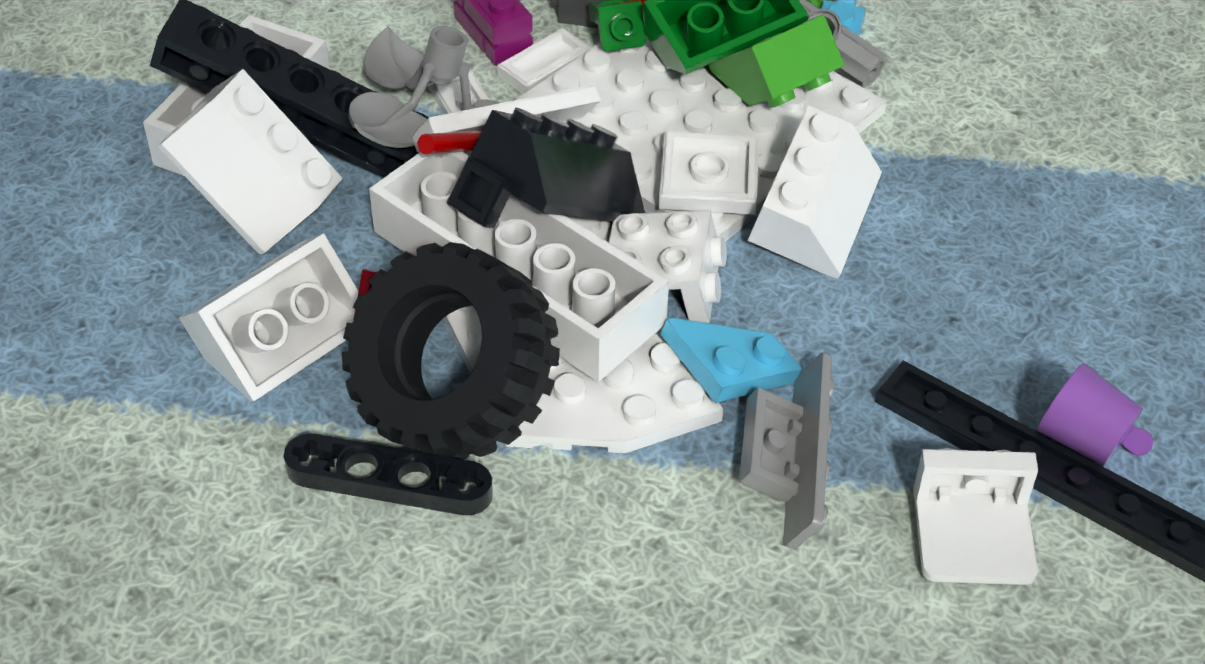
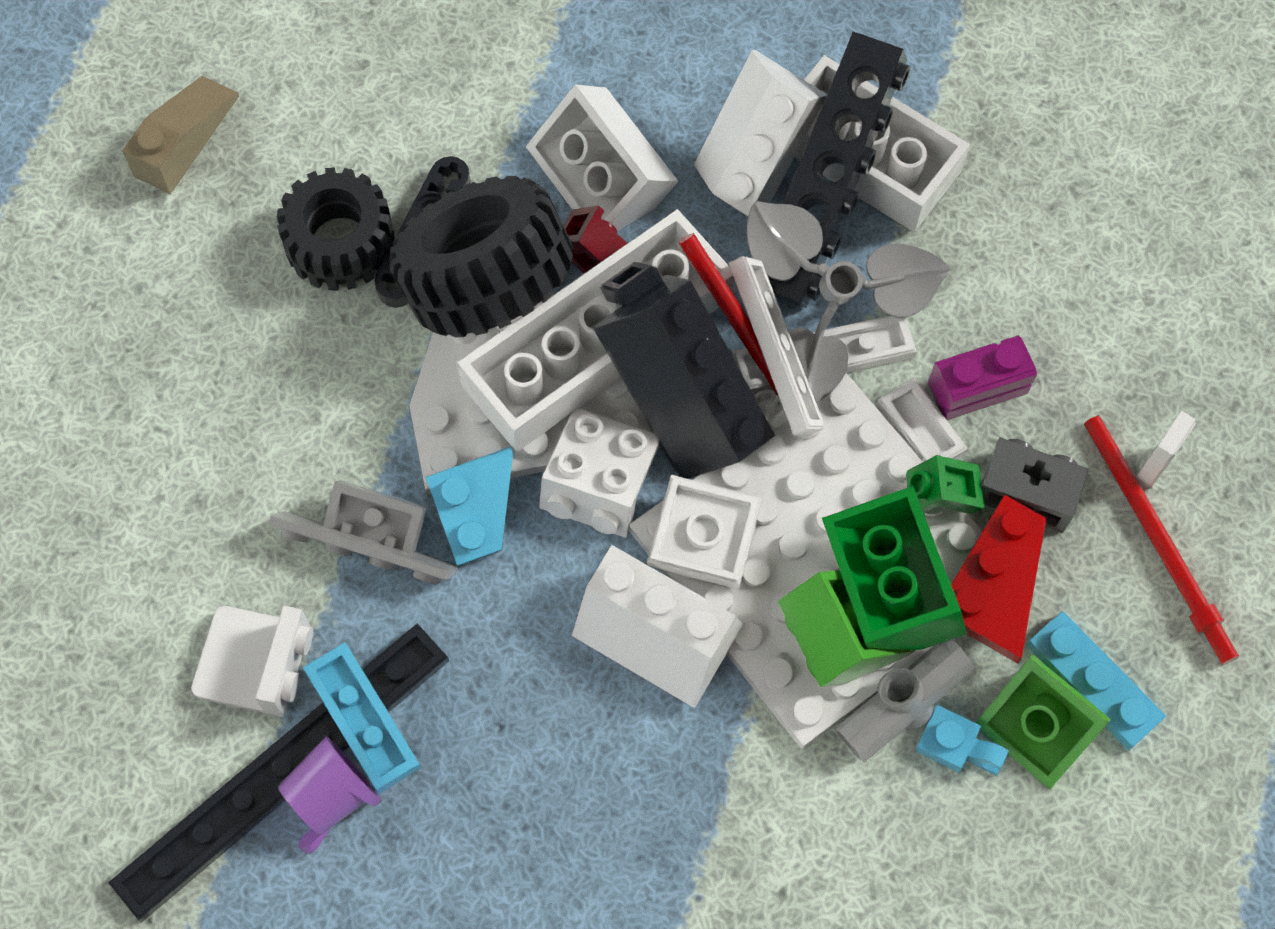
camera: 100 degrees right, 20 degrees up
(414, 580) = (330, 198): none -> black tyre
(1004, 400) = (362, 718): none -> medium azure plate

